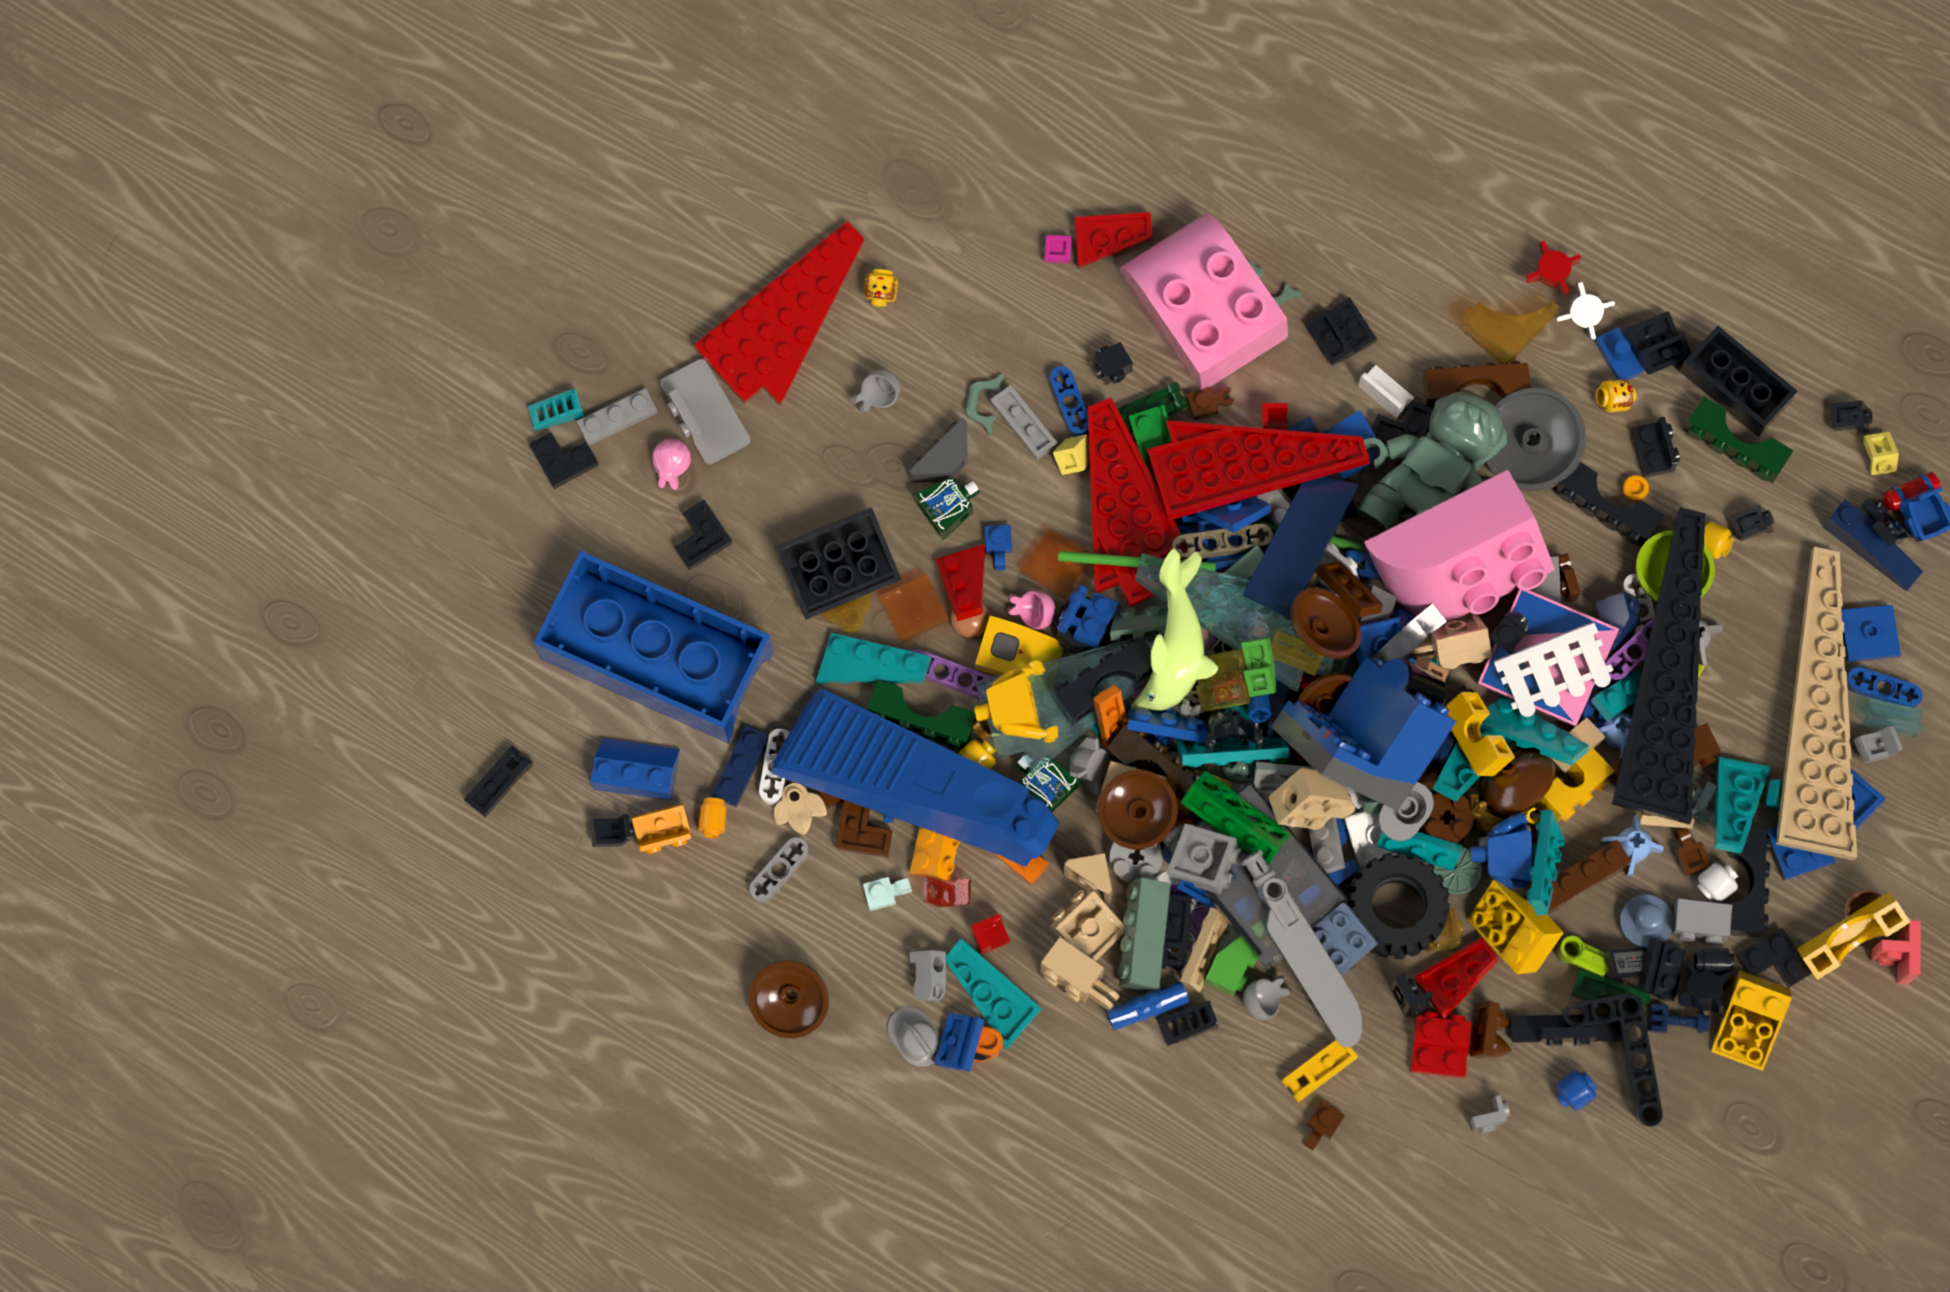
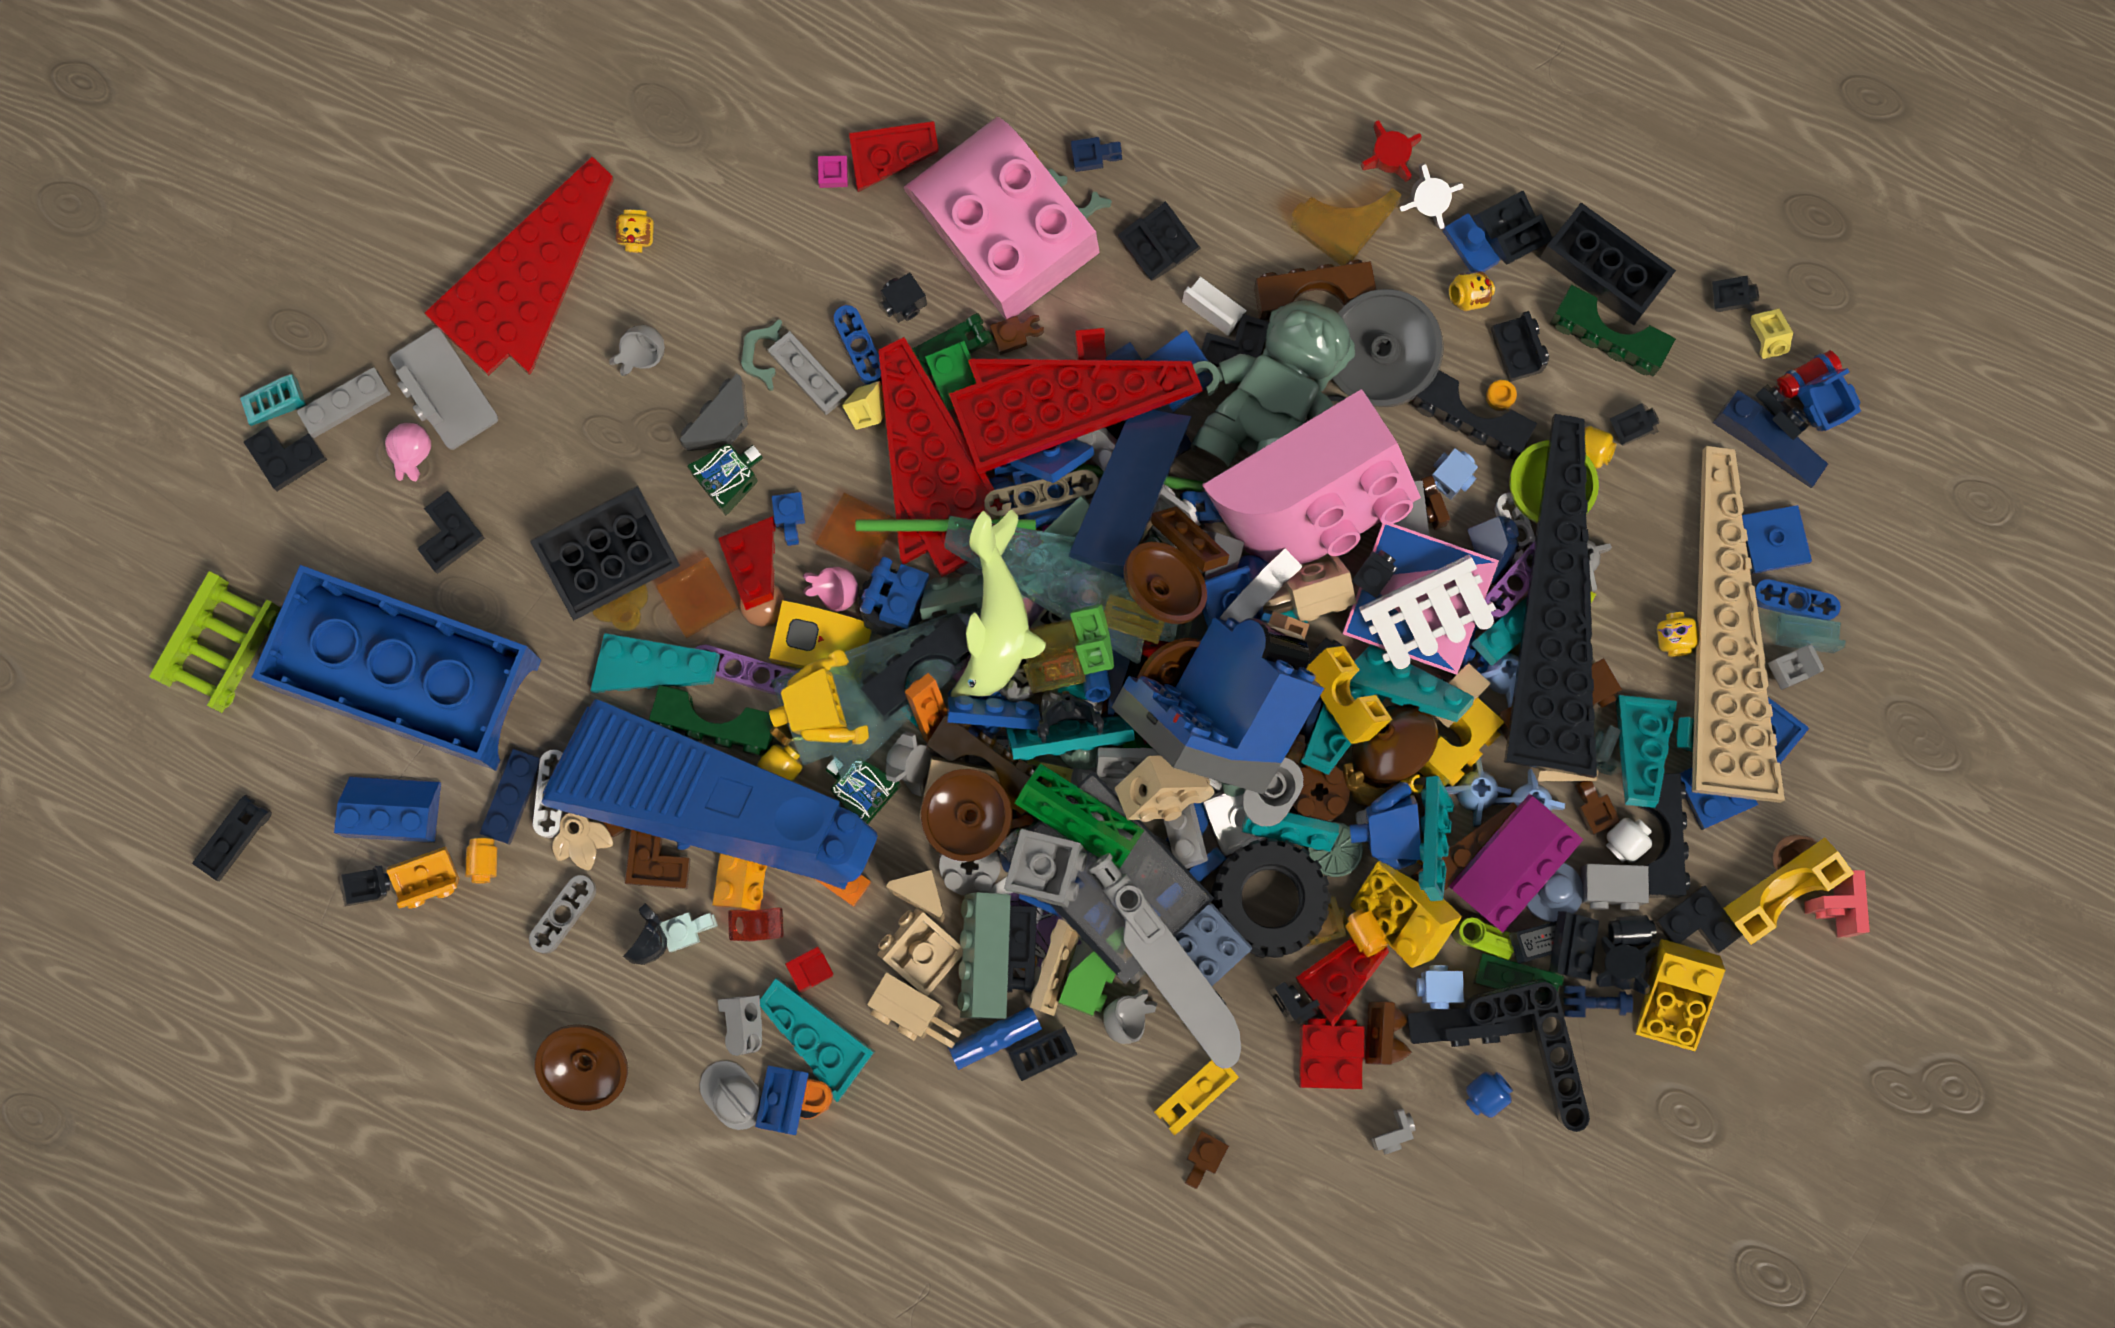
camera: 10 degrees left, 5 degrees up
(483, 591) = (199, 617): none -> lime fence
(855, 898) = (651, 941): none -> black piece
(1286, 250) = (1089, 153): none -> dark blue plate
(1479, 940) = (1366, 932): none -> light orange brick
(1541, 995) = (1440, 987): none -> light blue brick
(1587, 553) = (1454, 473): none -> light blue brick
(1587, 830) = (1477, 791): none -> light blue piece
(1614, 891) = (1516, 862): none -> magenta slope
(1774, 708) = (1677, 634): none -> yellow head

